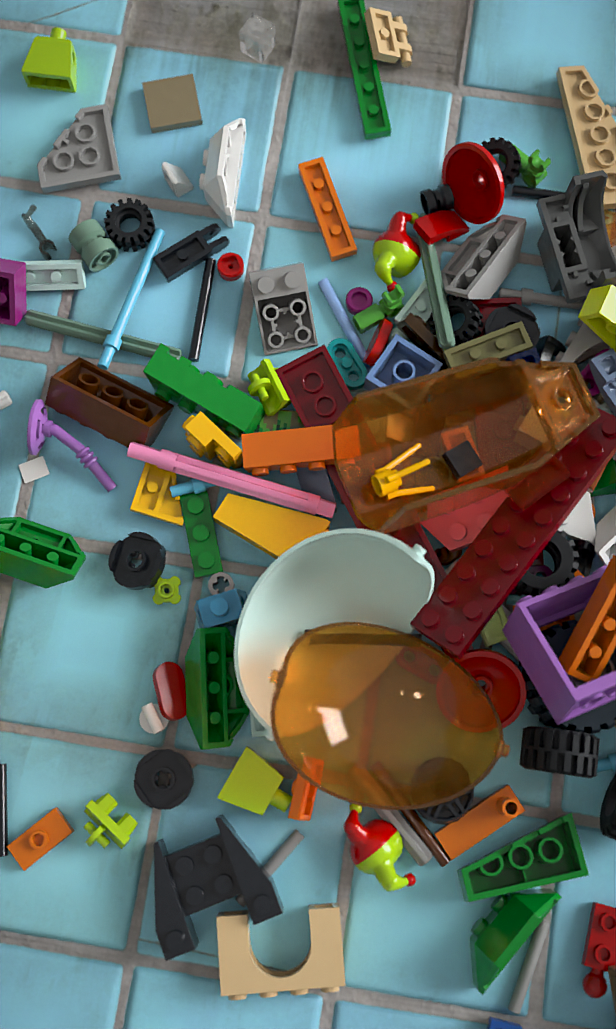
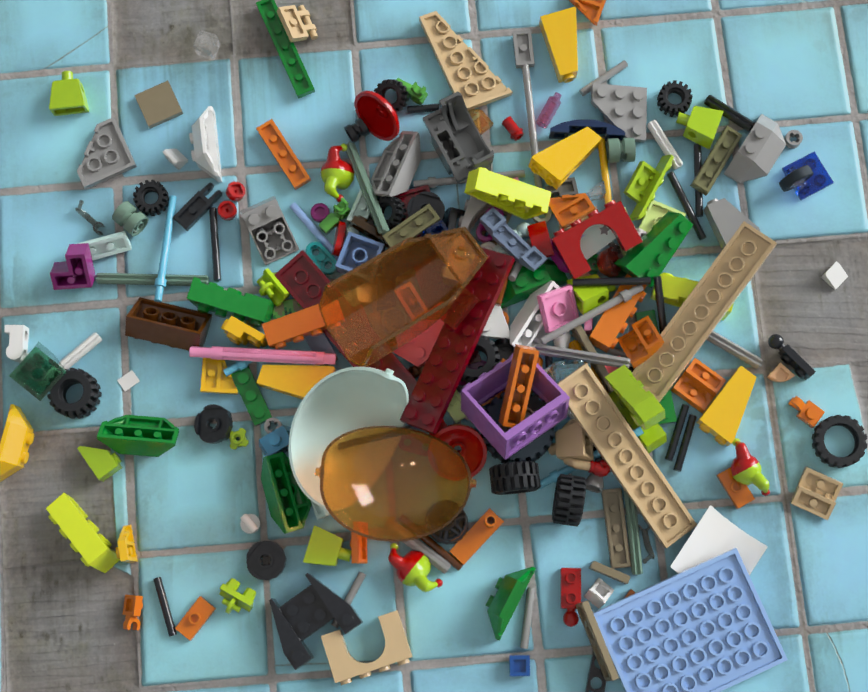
camera: 10 degrees left, 0 degrees up
(40, 427) = (127, 352): medium lavender dish -> none
(170, 690) = (256, 502): red tile -> none
(248, 243) = (235, 191): none -> red tile
(387, 481) = (362, 332): yellow plant -> none
(440, 225) = (362, 148): red slope -> none
(462, 459) = (410, 305): black tile -> none
(531, 861) = (513, 551): green wedge -> none

